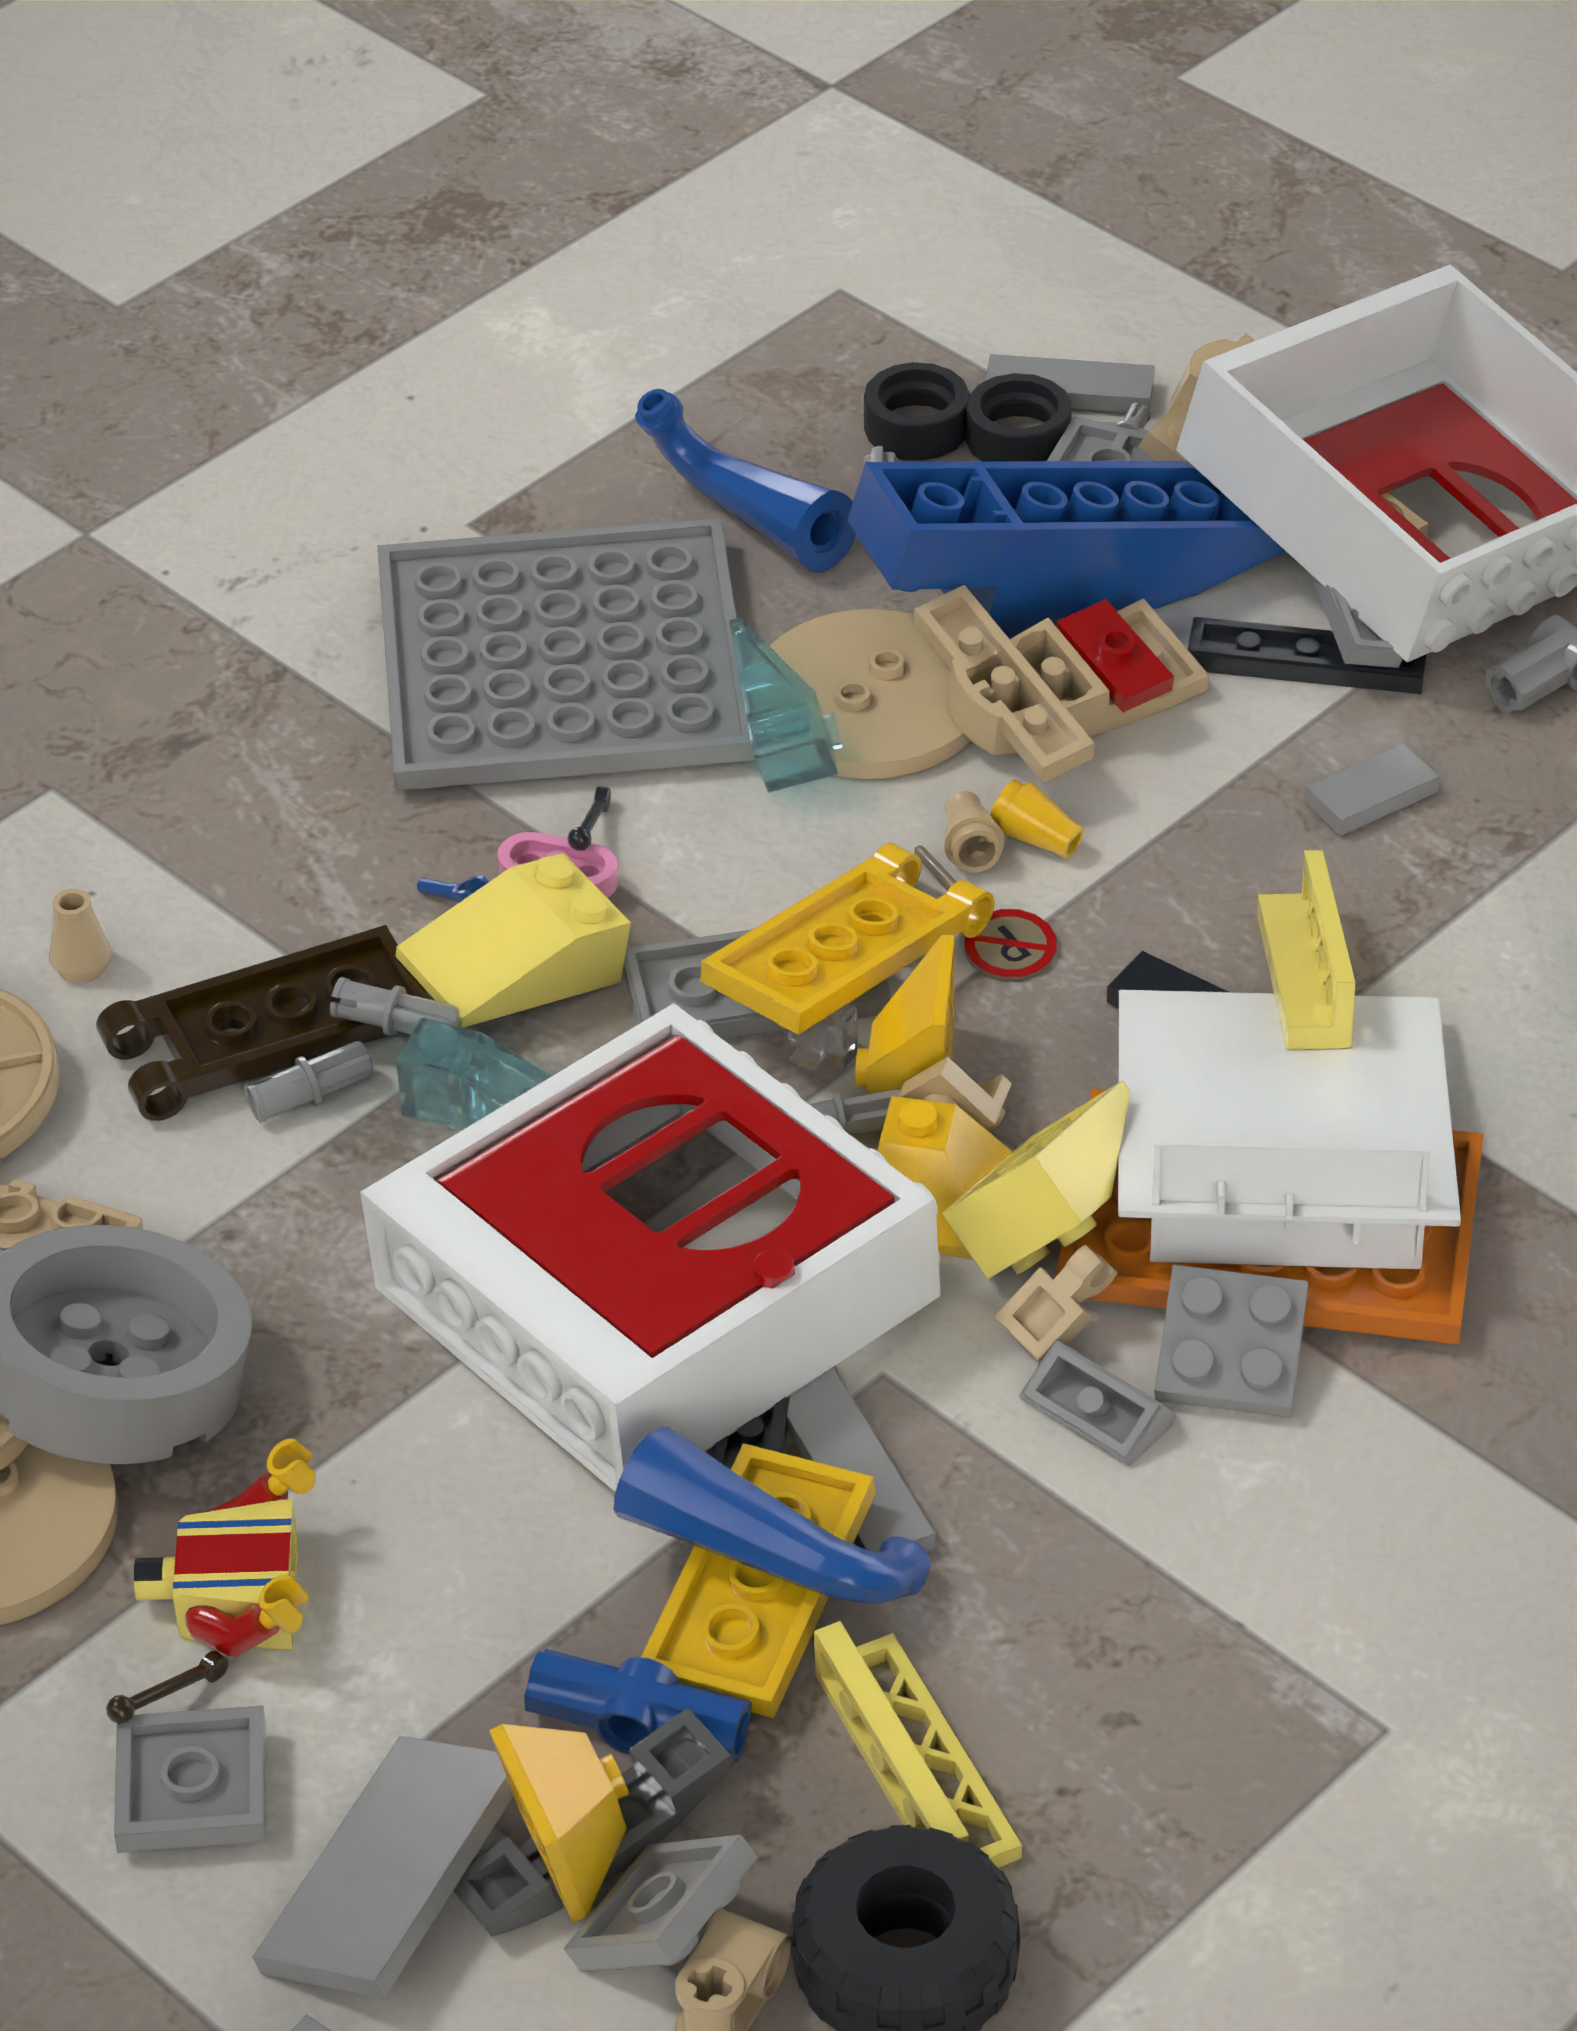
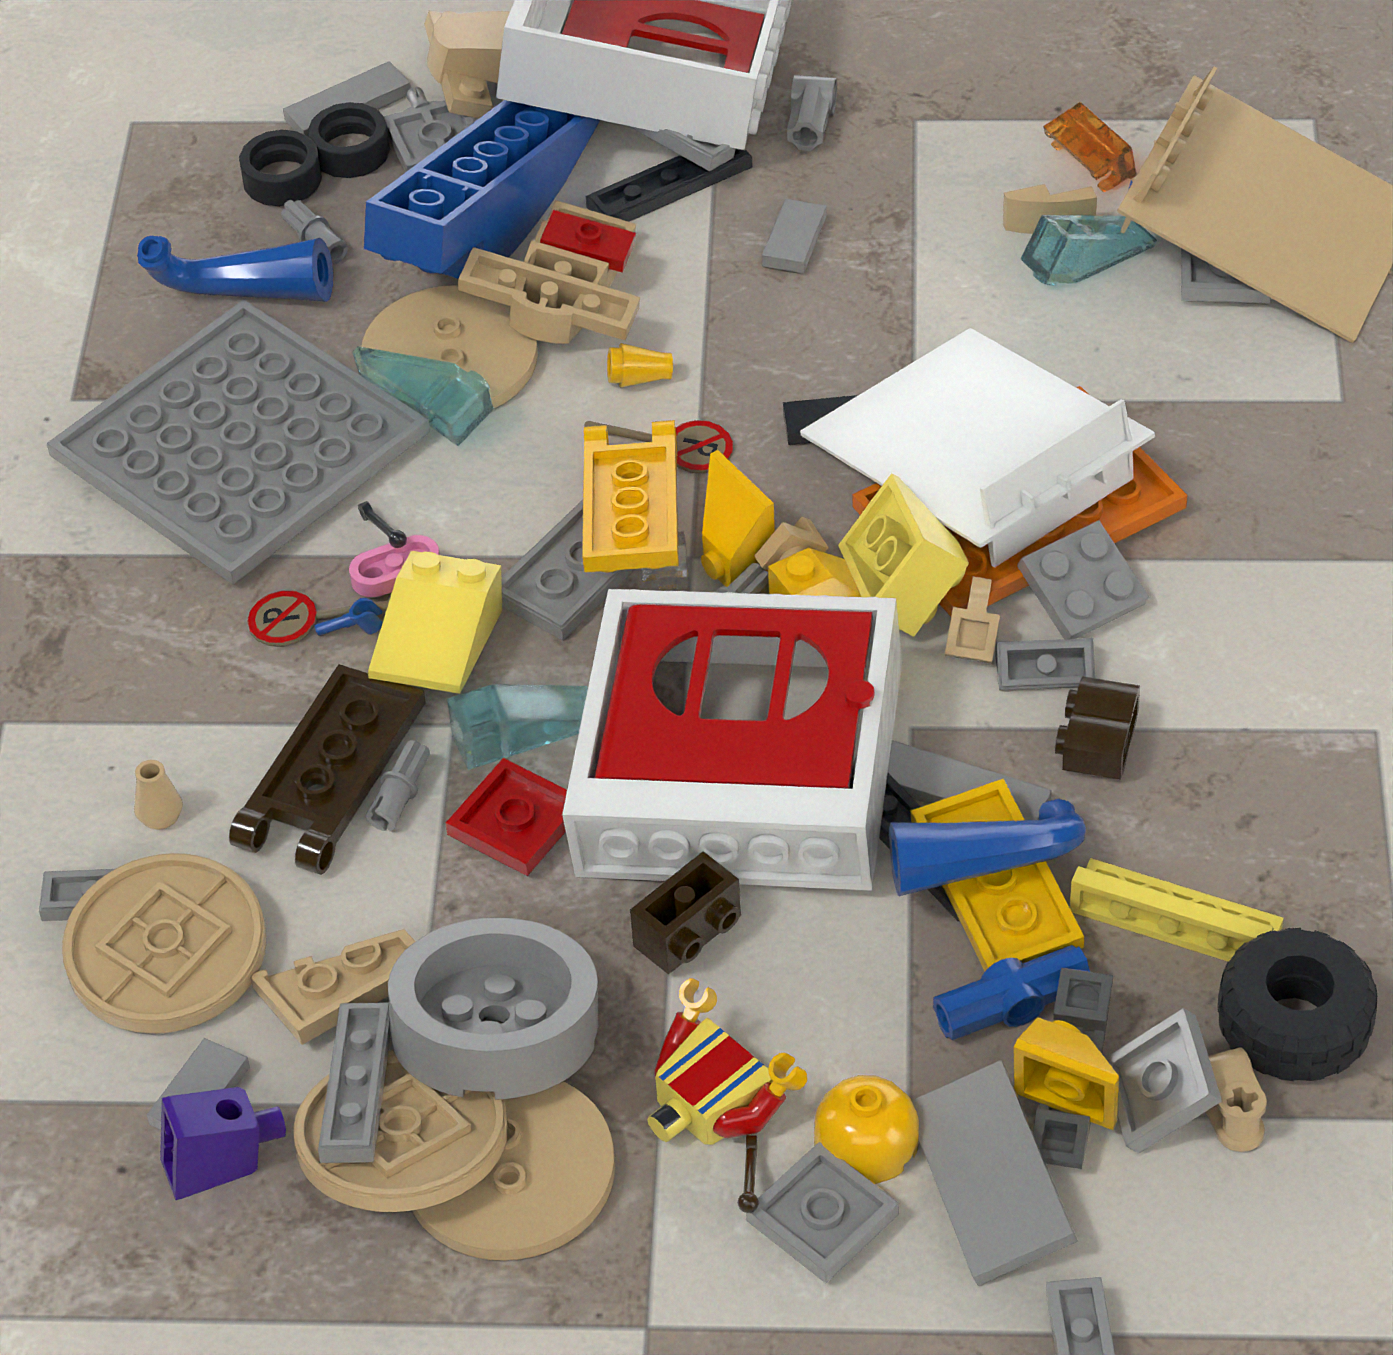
camera: 40 degrees left, 5 degrees up
(329, 1729) = (868, 1126): none -> yellow cylinder
(347, 1164) = (511, 817): none -> red plate
(388, 1008) = (413, 708): light grey axle -> none
(404, 1386) = (686, 913): none -> dark brown brick
(407, 853) = (289, 617): none -> piece
(971, 834) = (611, 395): tan cone -> none
(1062, 1505) = (1099, 727): none -> dark brown brick
(1309, 961) = (889, 352): light yellow fence -> none

